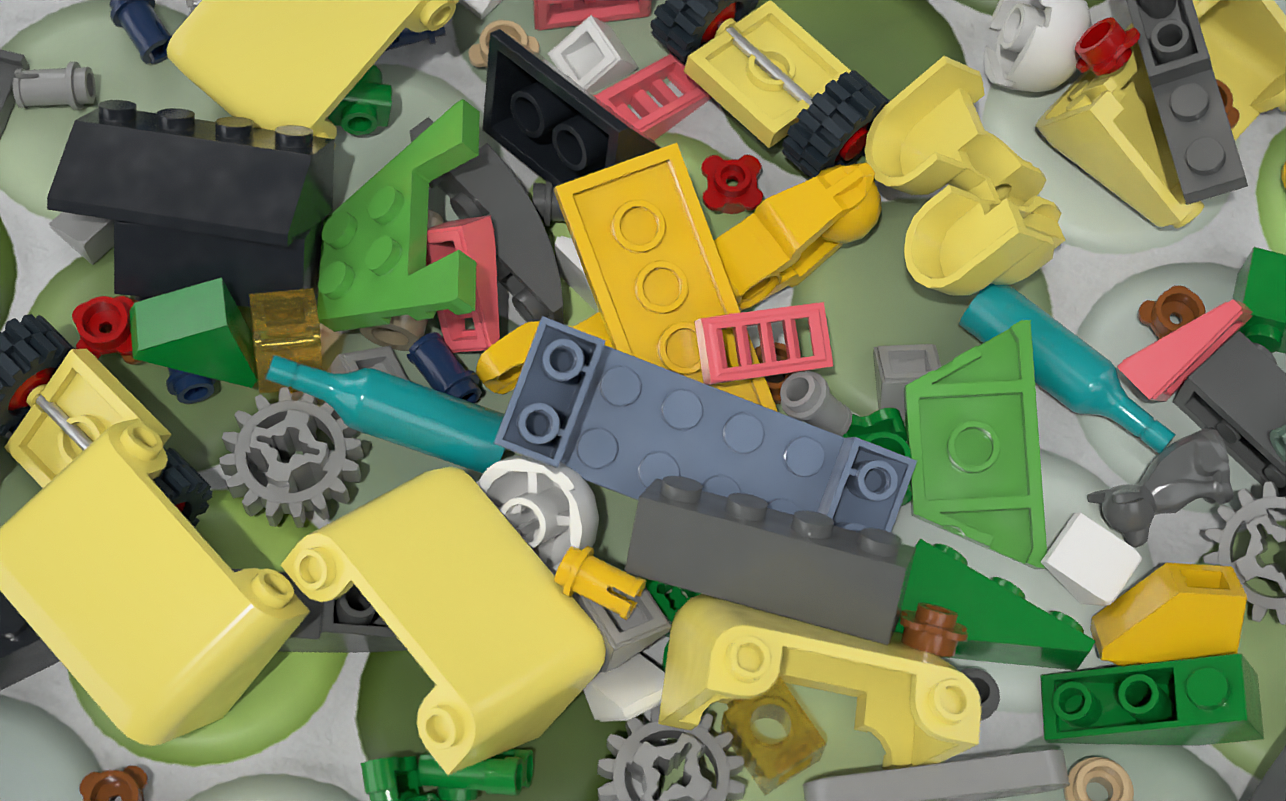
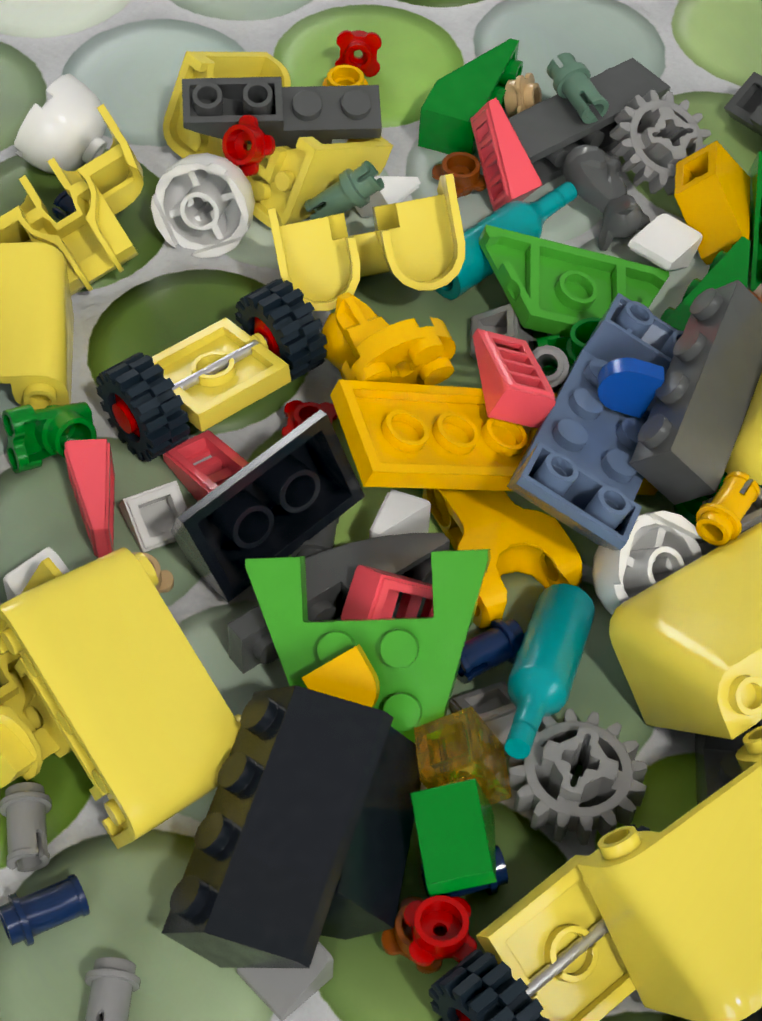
camera: 85 degrees left, 15 degrees down
(346, 216) = (347, 677): none -> yellow tile
(739, 217) = (405, 354): none -> yellow plate
(762, 465) = (629, 385): none -> blue tile
(1070, 172) = (350, 191): none -> sand green pin
(1110, 226) = (395, 190): none -> white slope

